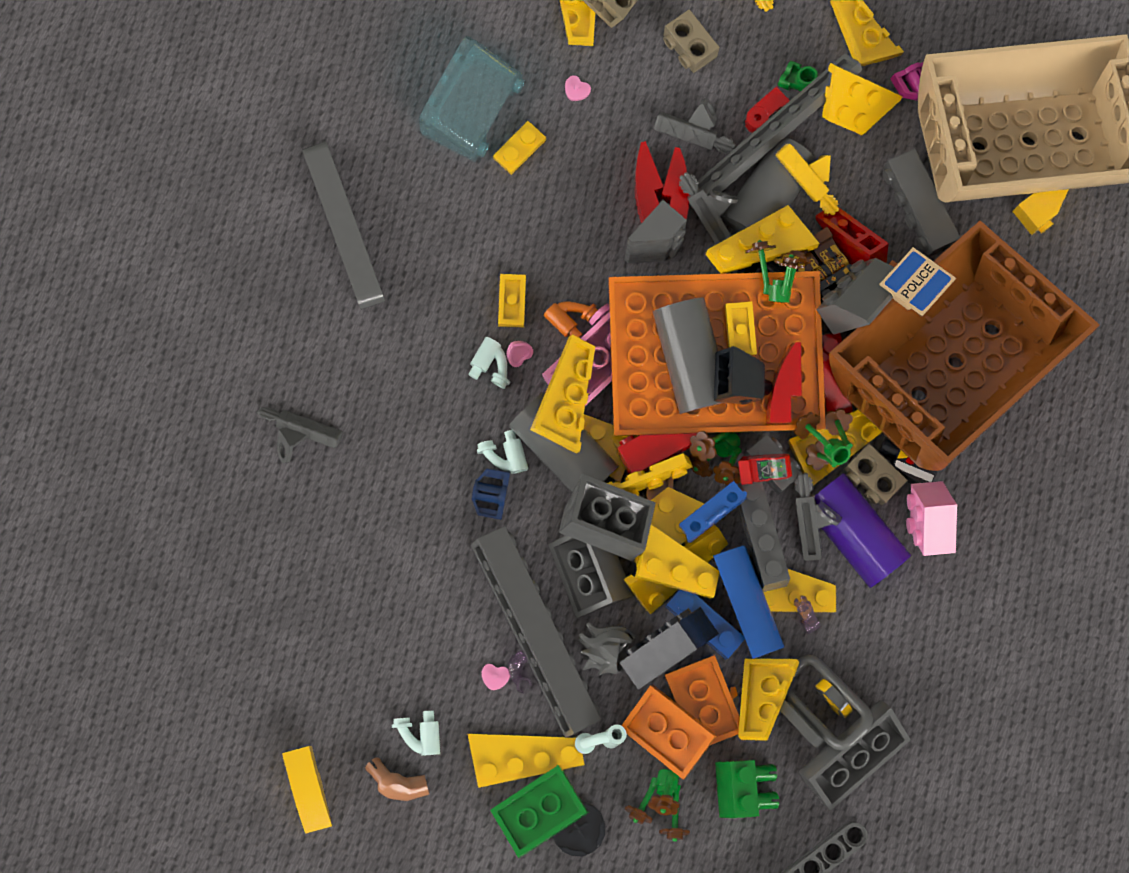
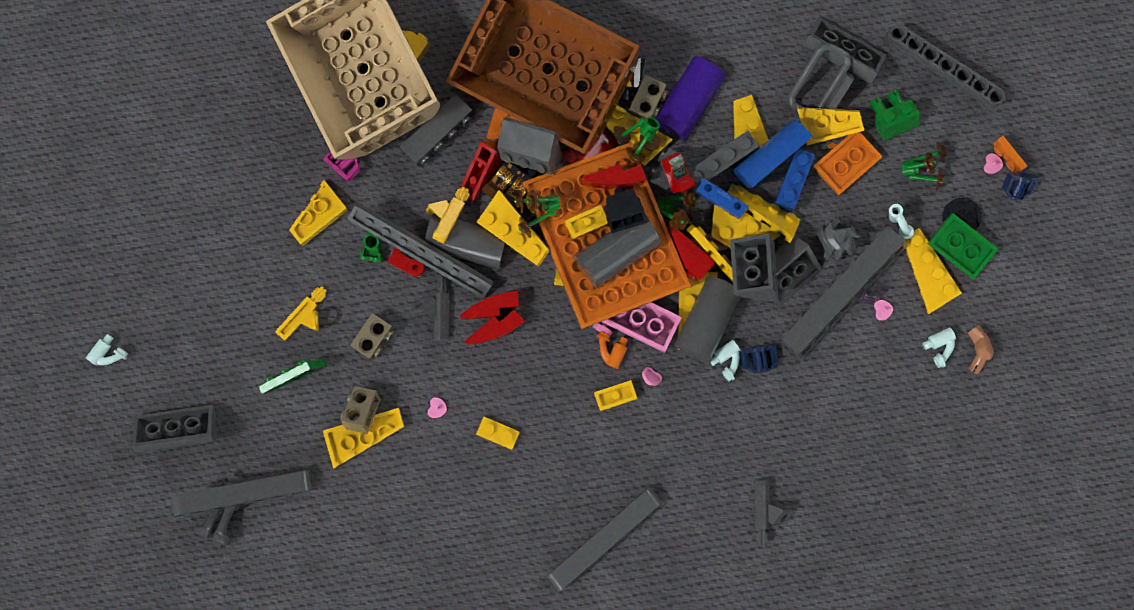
camera: 105 degrees left, 5 degrees up
(307, 789) = (1007, 408): yellow slope -> none
(469, 99) = (477, 480): clear light blue windscreen -> none
(483, 358) = (660, 399): light aqua plant -> none
(565, 398) = (683, 327): yellow wing -> none
(657, 236) = (535, 305): dark grey slope -> none
(668, 646) = (825, 196): brick -> none
(668, 731) = (877, 178): orange plate -> none
(675, 566) = (768, 210): yellow wing -> none
(708, 206) = (498, 276): dark grey piece -> none
(806, 611) = (763, 112): arm -> none
(811, 518) = (695, 130): dark grey piece -> none
(833, 698) = (813, 76): piece -> none
(856, 101) = (379, 199): yellow wing -> none
(917, 282) = (511, 109): piece -> none
(932, 518) = (667, 49): bright pink brick -> none

